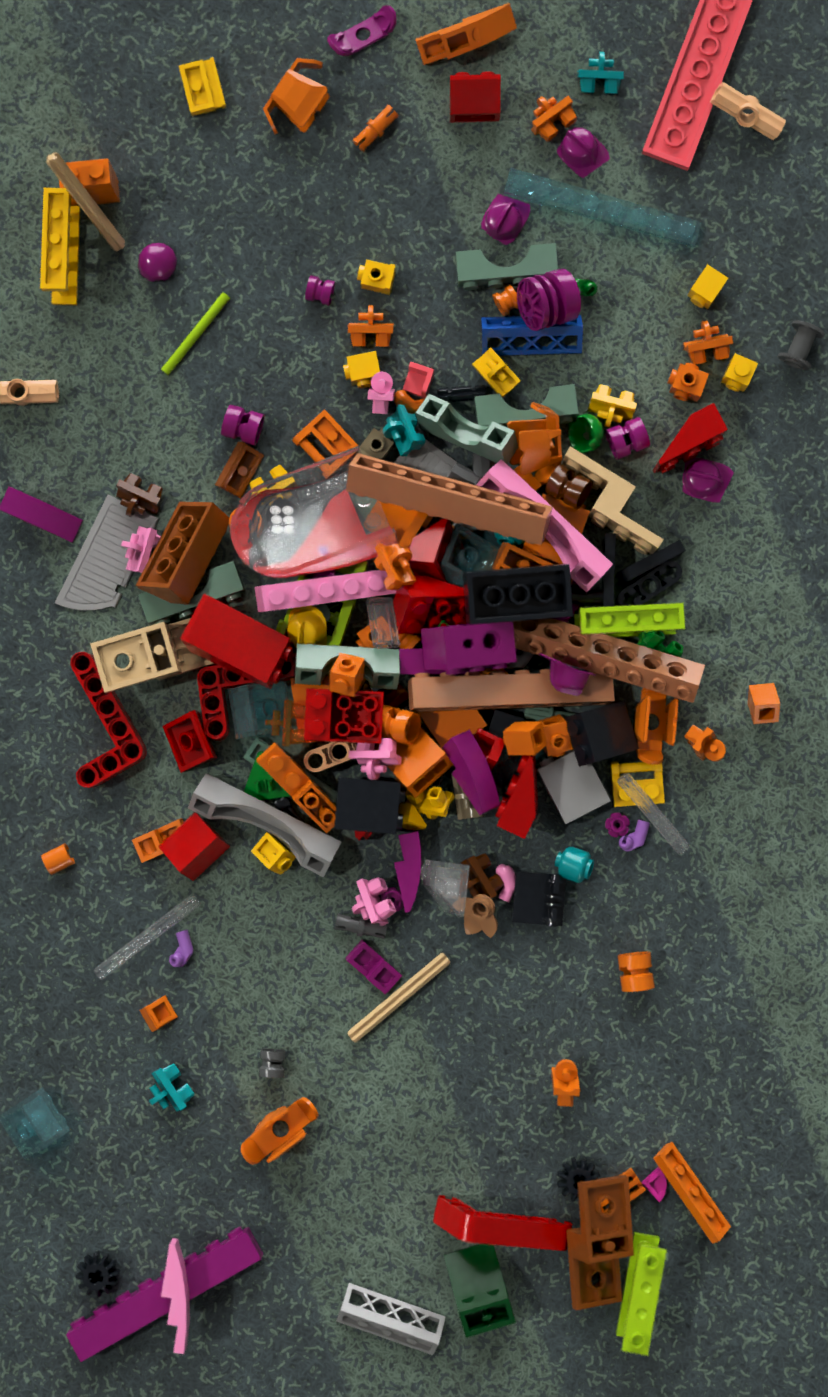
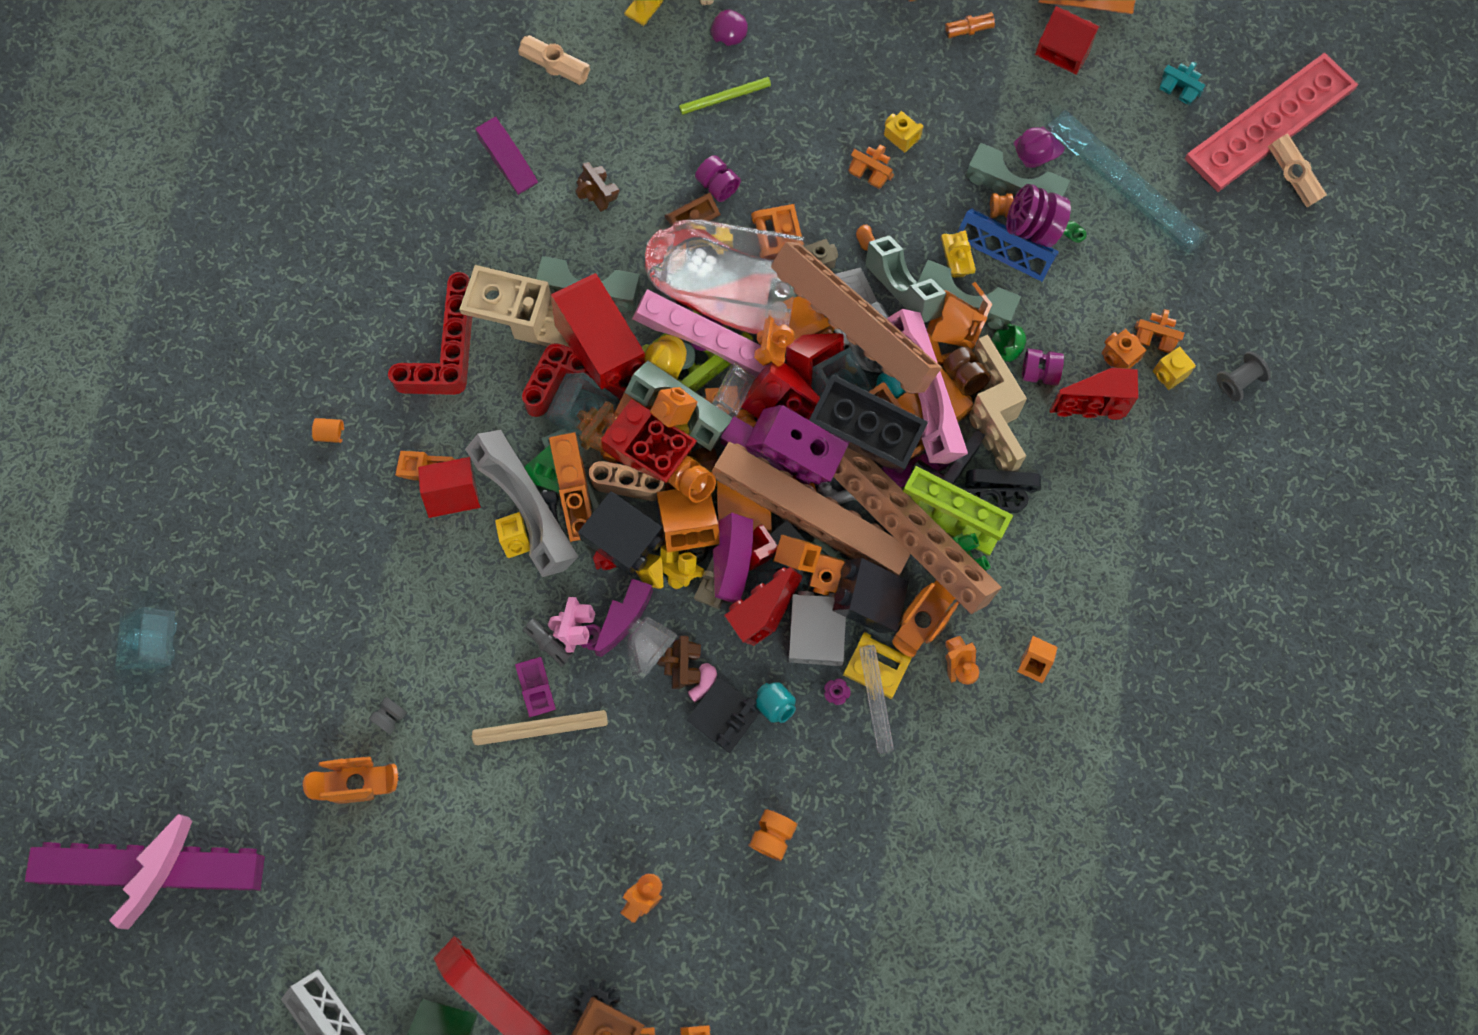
camera: 25 degrees right, 15 degrees down
(88, 1270) = (89, 811): black gear -> none
(102, 559) = (537, 221): light grey piece -> none
(140, 548) = (578, 221): bright pink hips -> none
(147, 937) = (356, 540): clear axle -> none
(158, 1013) = (320, 612): orange slope -> none
(176, 1097) = (284, 694): teal hips -> none
(184, 551) = (602, 245): dark orange slope -> none
(184, 950) = (379, 572): medium lavender arm -> none
(189, 741) = (504, 399): red slope -> none
(319, 290) = (847, 114): magenta wheel -> none
(361, 368) = (845, 191): yellow brick -> none
(374, 761) = (653, 495): bright pink hips -> none
(381, 392) = (849, 215): bright pink hips -> none
(401, 428) = (849, 254): teal hips -> none
(418, 380) = (891, 223): coral panel -> none
(461, 393) = (918, 256): black axle -> none
(478, 918) = (657, 695): medium nougat plate -> none
(561, 111) = (1123, 88): orange hips -> none
(565, 678) = (867, 520): magenta piece -> none
(582, 151) = (1134, 130): magenta piece -> none
(611, 407) = (1043, 335): yellow hips -> none
(635, 839) = (846, 715): medium lavender arm -> none
(706, 479) = (1093, 442): magenta piece -> none
(707, 287) = (1184, 285): yellow brick -> none

